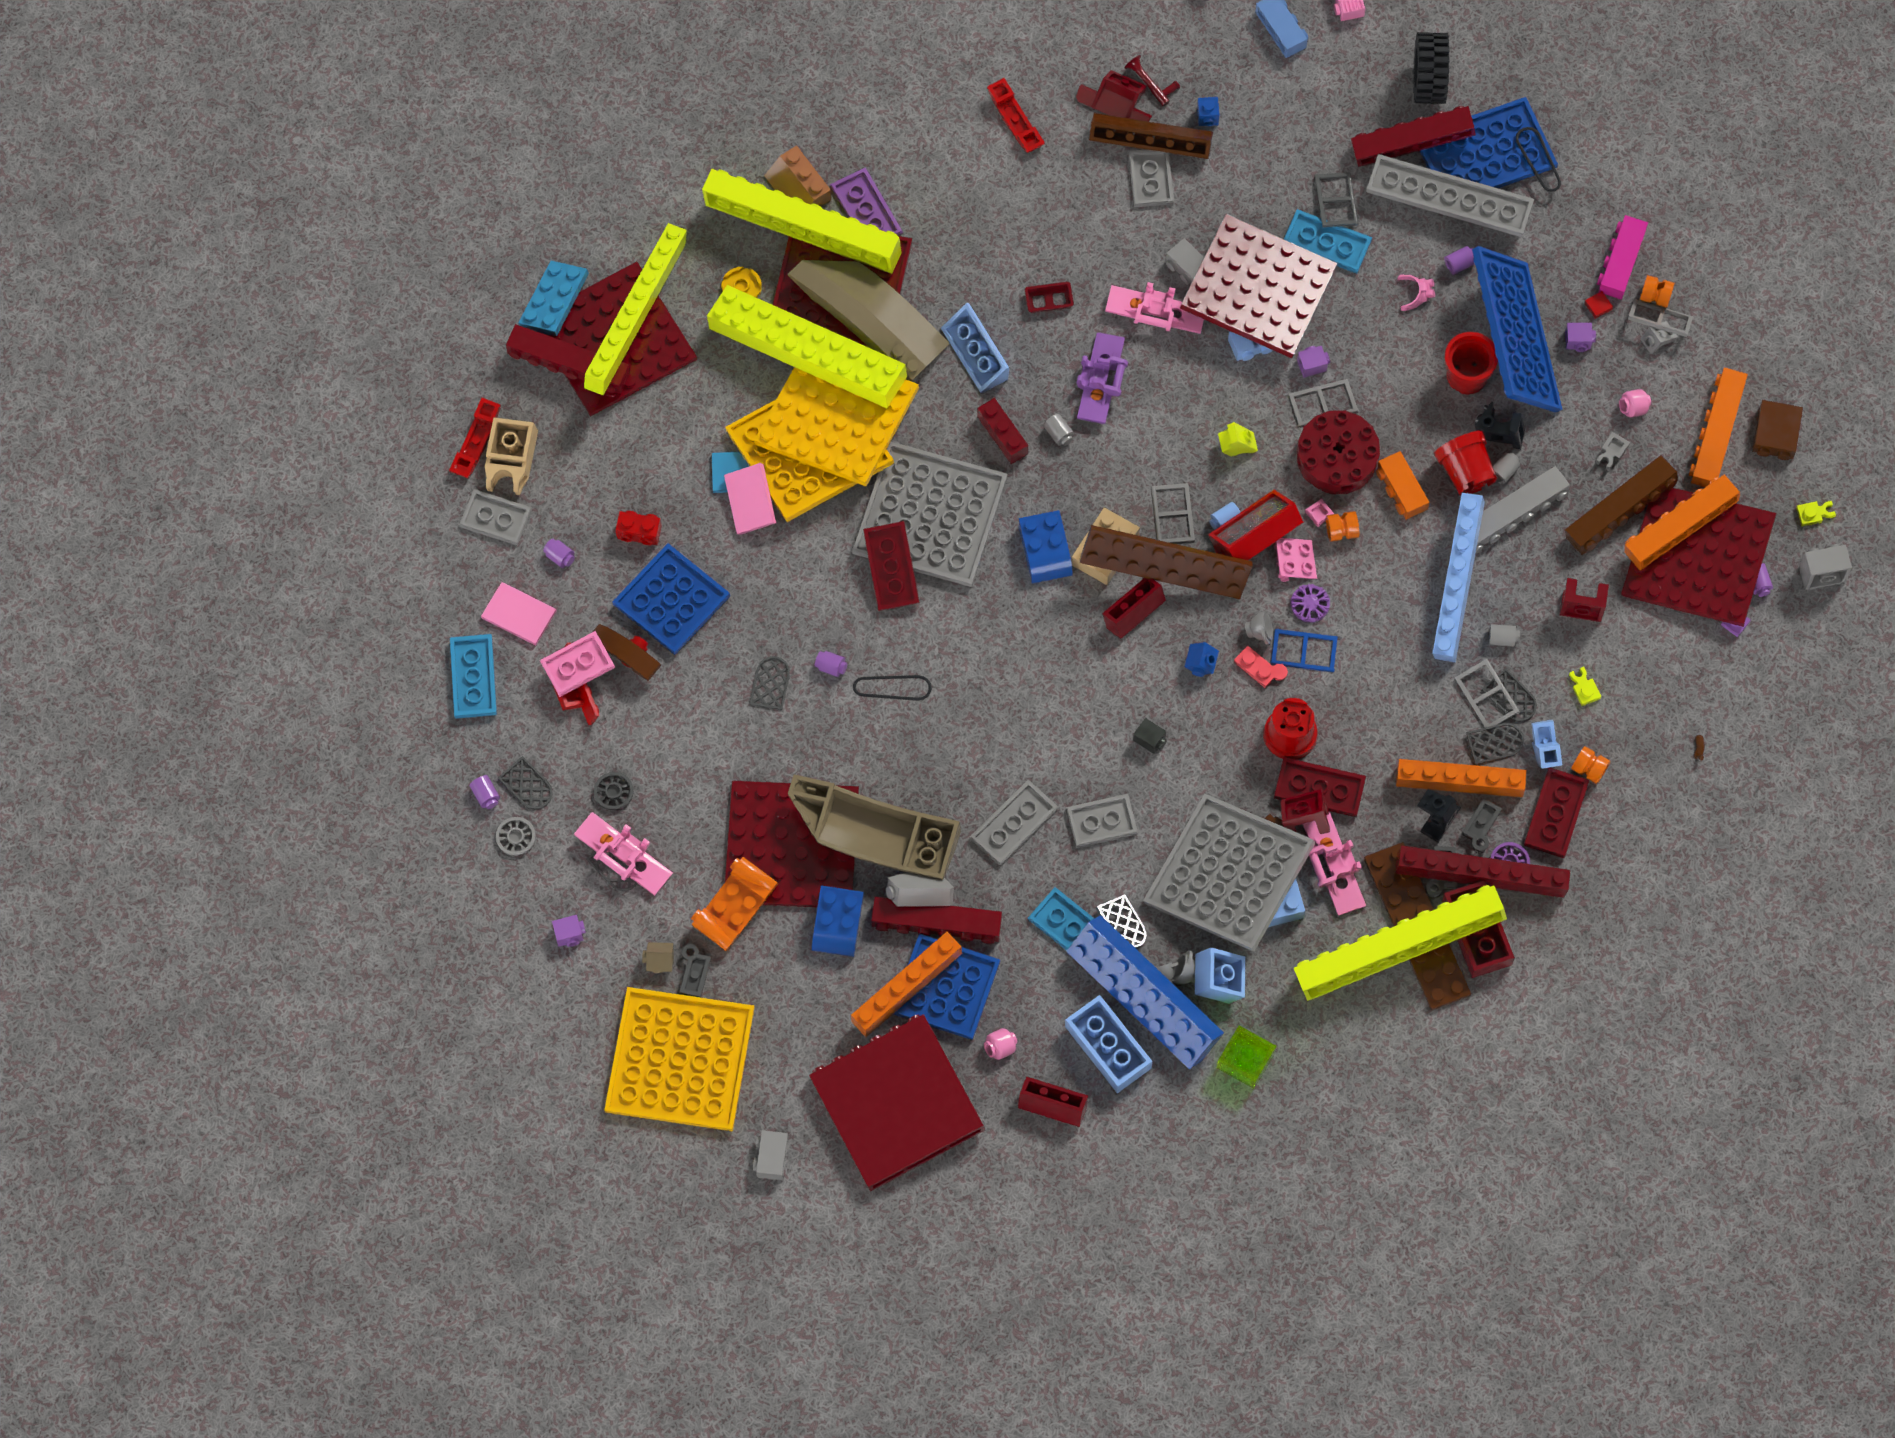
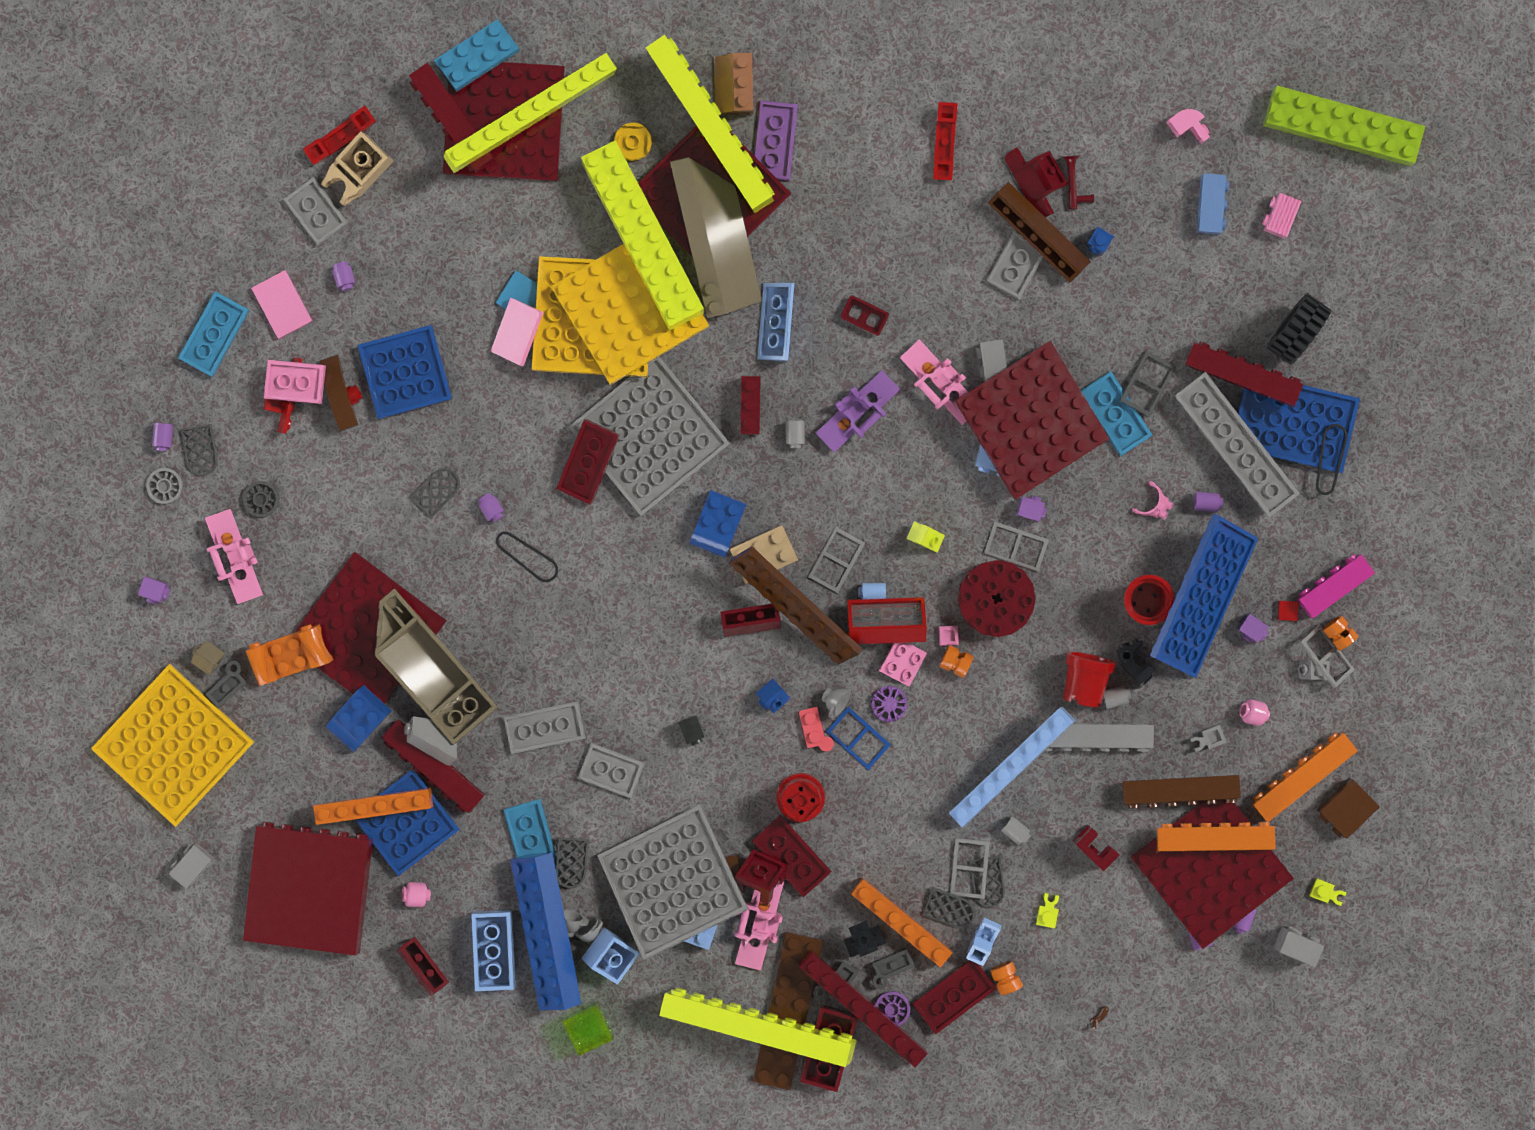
camera: 30 degrees right, 20 degrees up
(638, 528) = (421, 302): red brick -> none
(1402, 485) = (1026, 658): orange brick -> none

